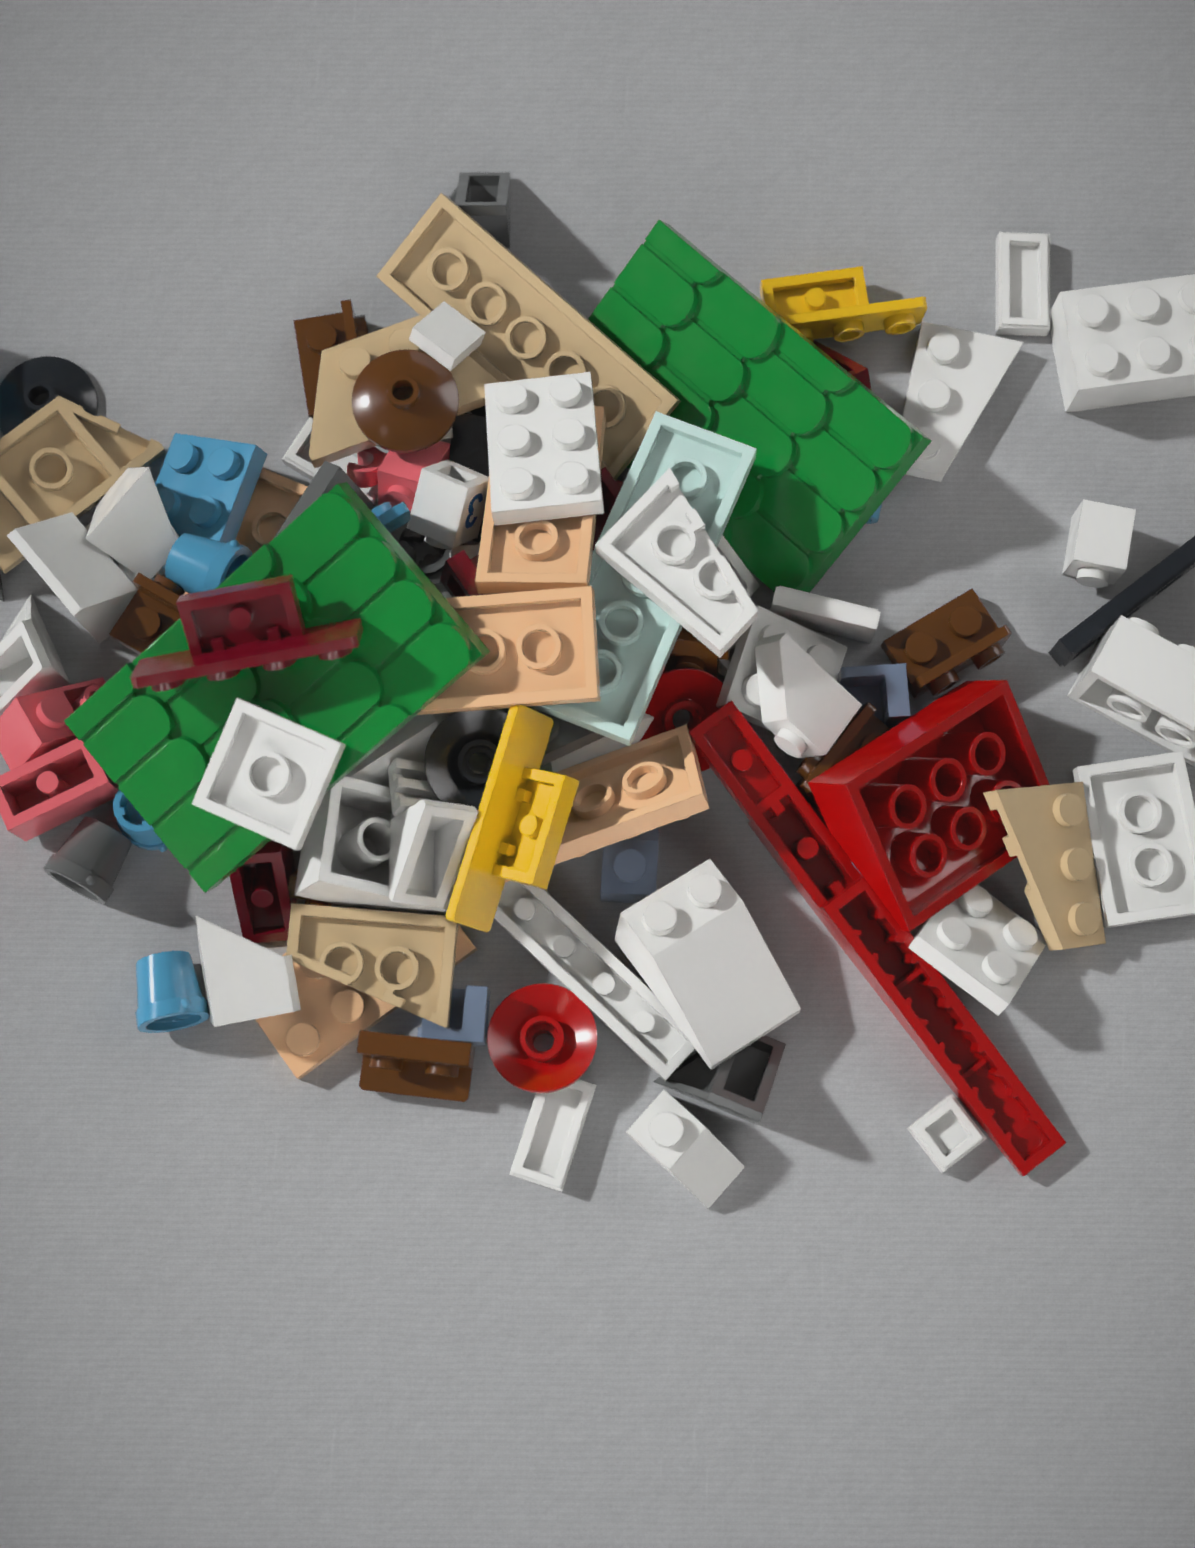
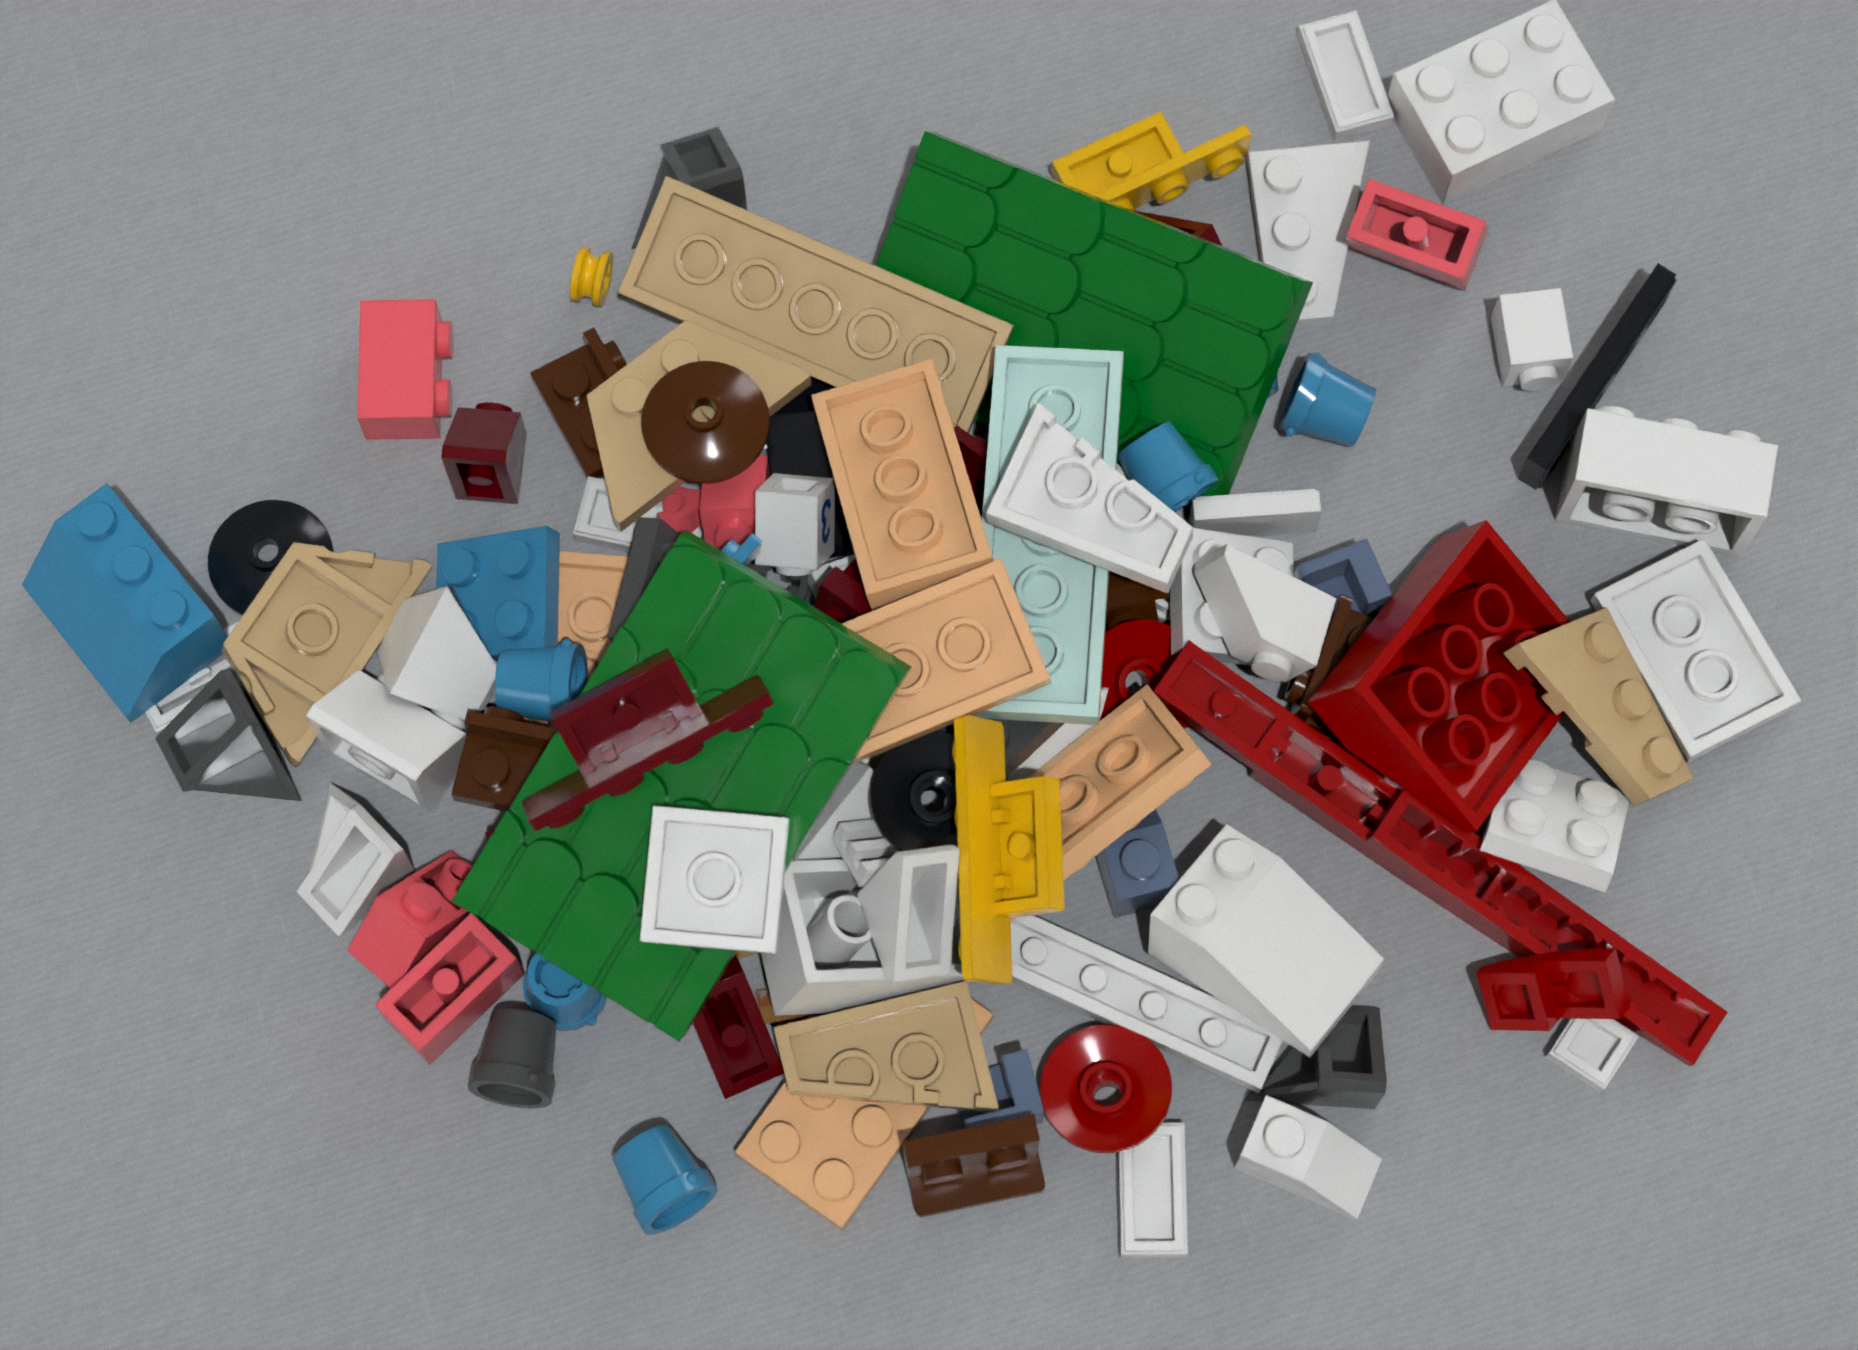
camera: 20 degrees left, 5 degrees down
(194, 286) = (402, 369): none -> coral brick
(233, 372) = (485, 453): none -> dark red slope
(243, 977) = (744, 1128): white slope -> none
(367, 259) = (591, 276): none -> yellow bush
(447, 335) = (727, 334): white tile -> none
(543, 449) = (885, 426): white plate -> none
(762, 556) = (1167, 467): none -> dark azure piece
(913, 543) = (1326, 403): none -> dark azure piece
(924, 1075) = (1544, 987): none -> red slope
(946, 644) = (1403, 503): reddish brown bracket -> none
(1034, 429) = (1417, 234): none -> coral brick

